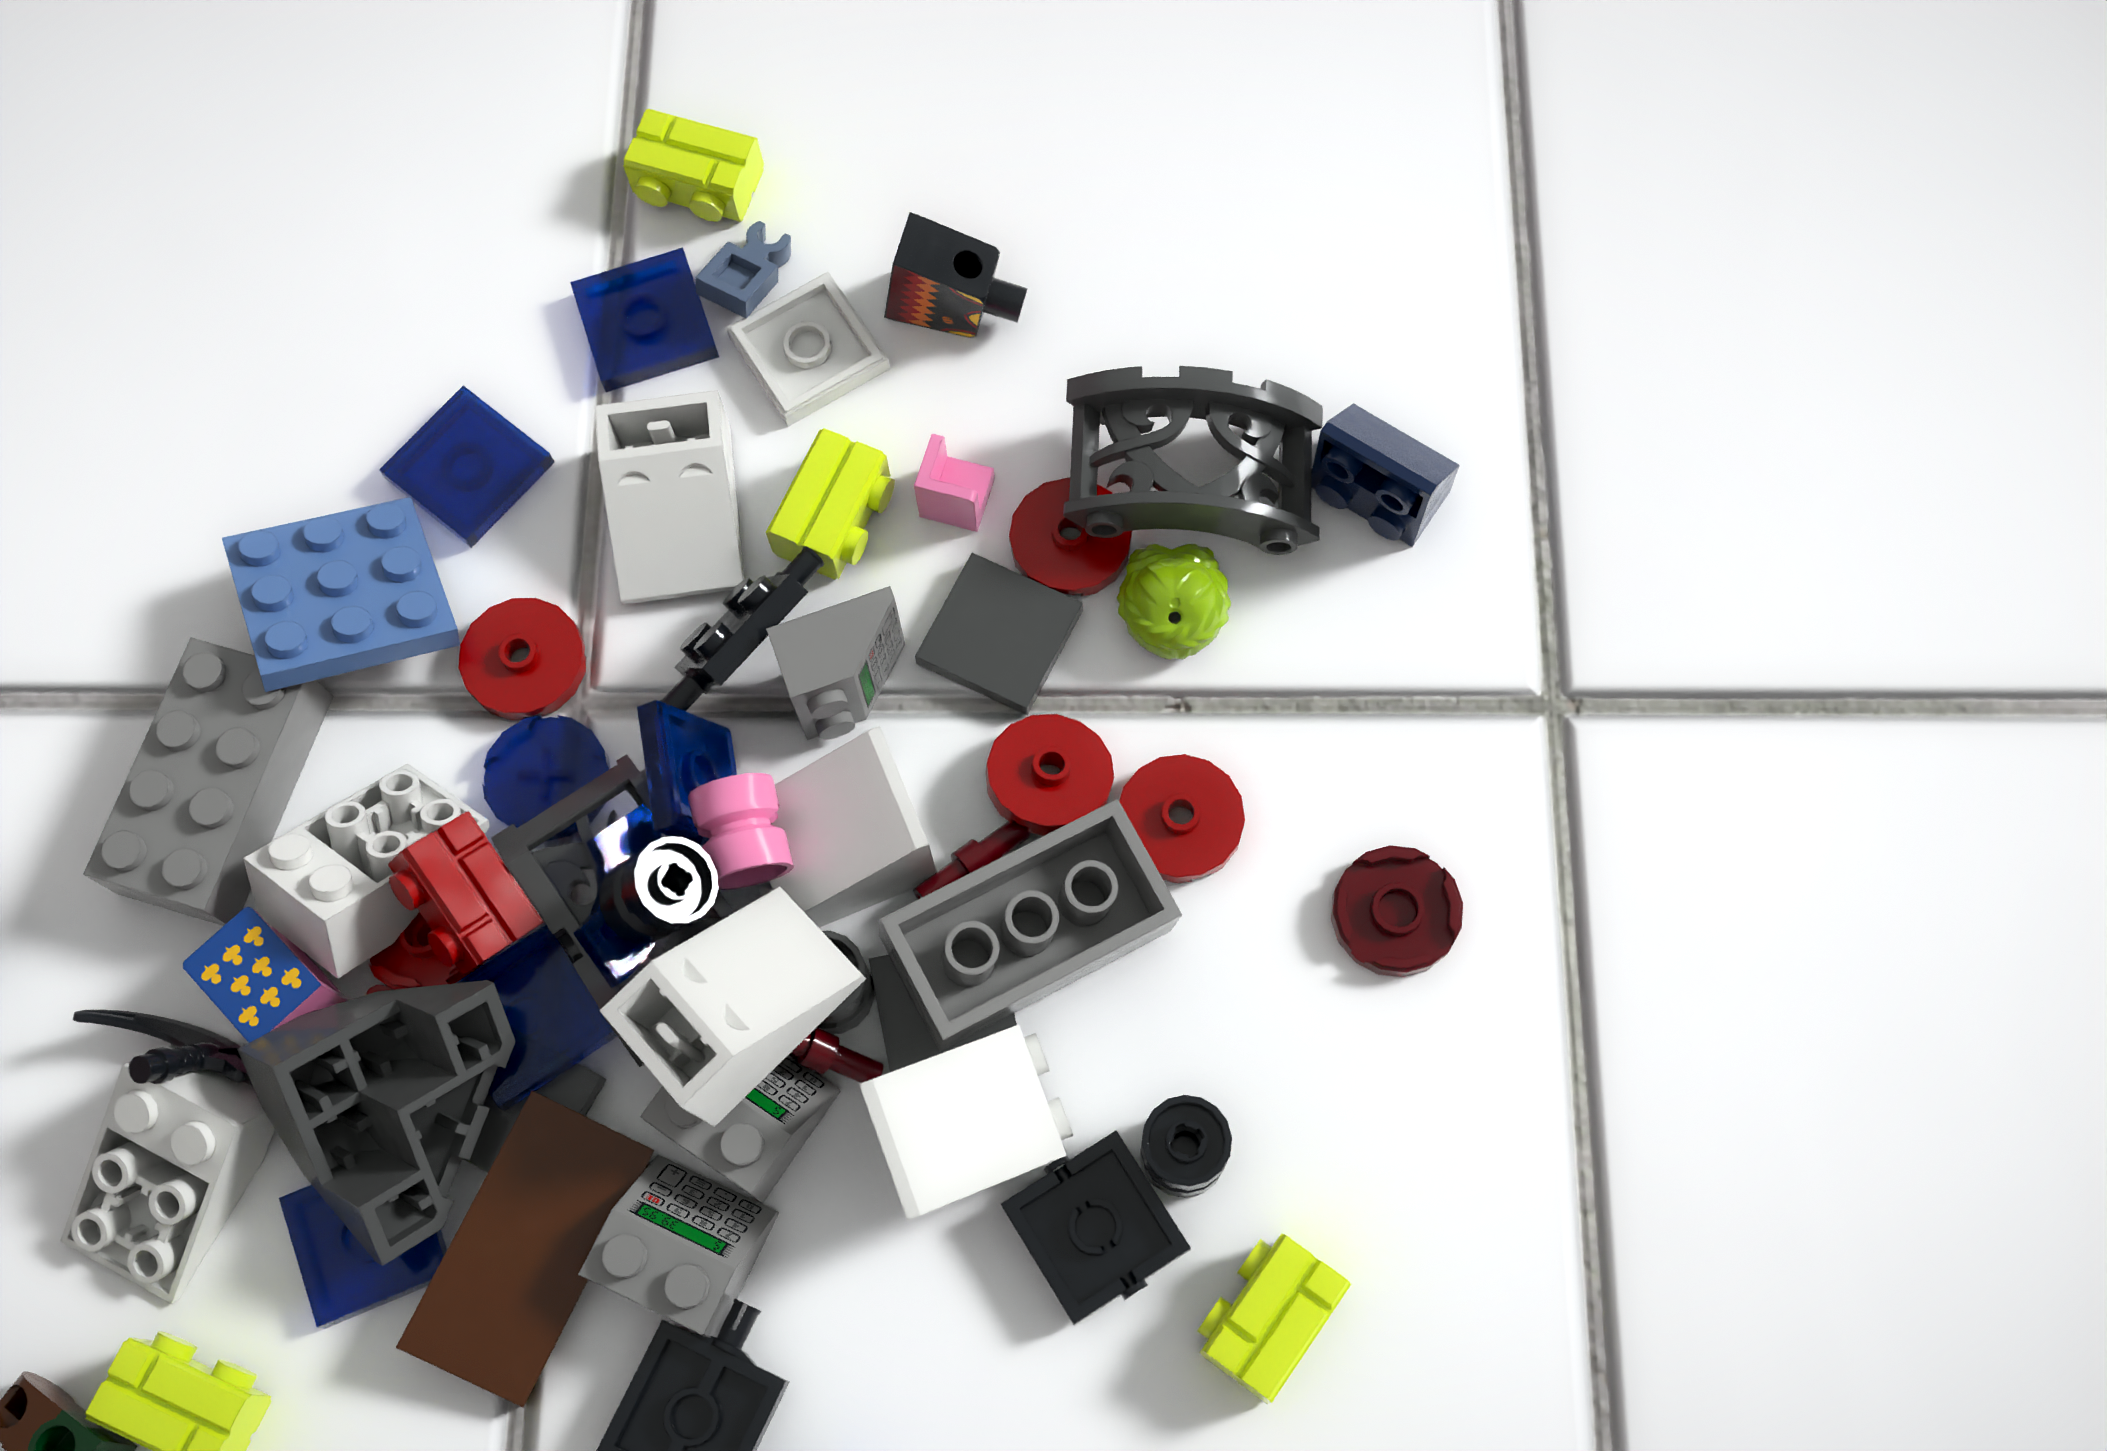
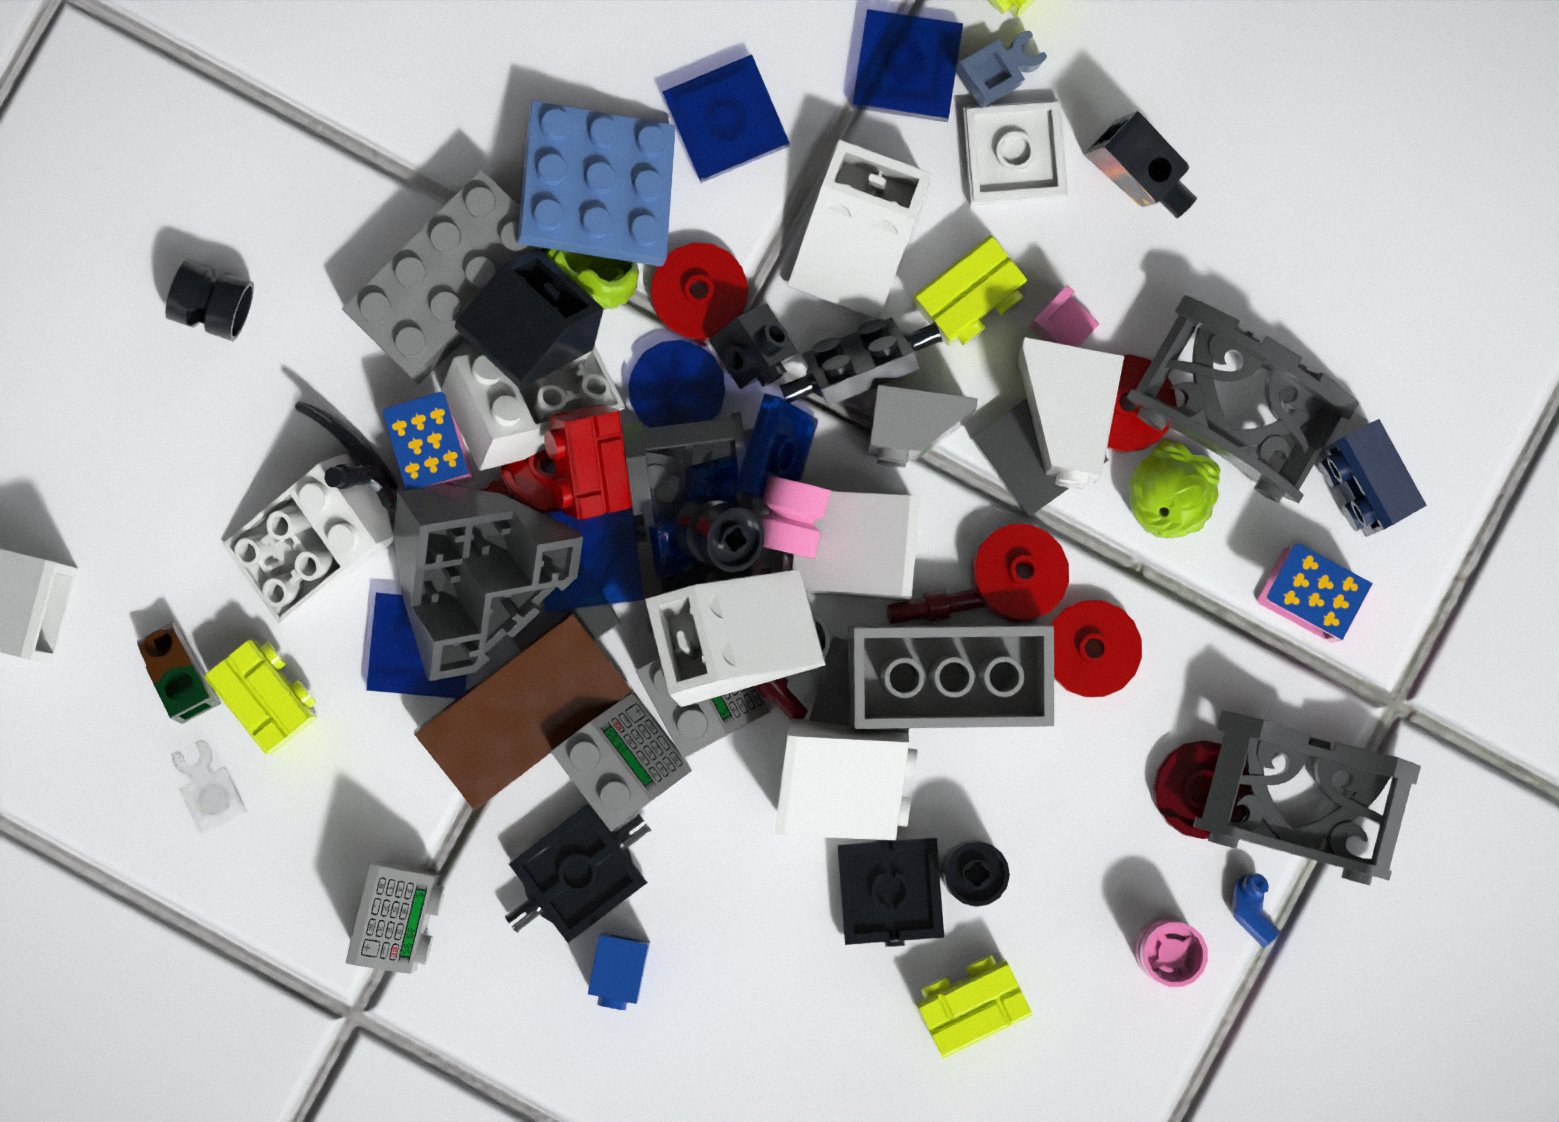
camera: 25 degrees right, 15 degrees up
(319, 766) = (531, 319): none -> black slope
(381, 696) = (604, 279): none -> lime hair
(608, 678) = (754, 347): none -> black brick
(1001, 550) = (1071, 406): none -> white slope
(1393, 623) = (1314, 593): none -> blue piece
(1422, 823) = (1255, 743): none -> dark grey fence
(1473, 1115) = (1171, 952): none -> bright pink wheel
(1529, 1019) = (1248, 908): none -> blue arm

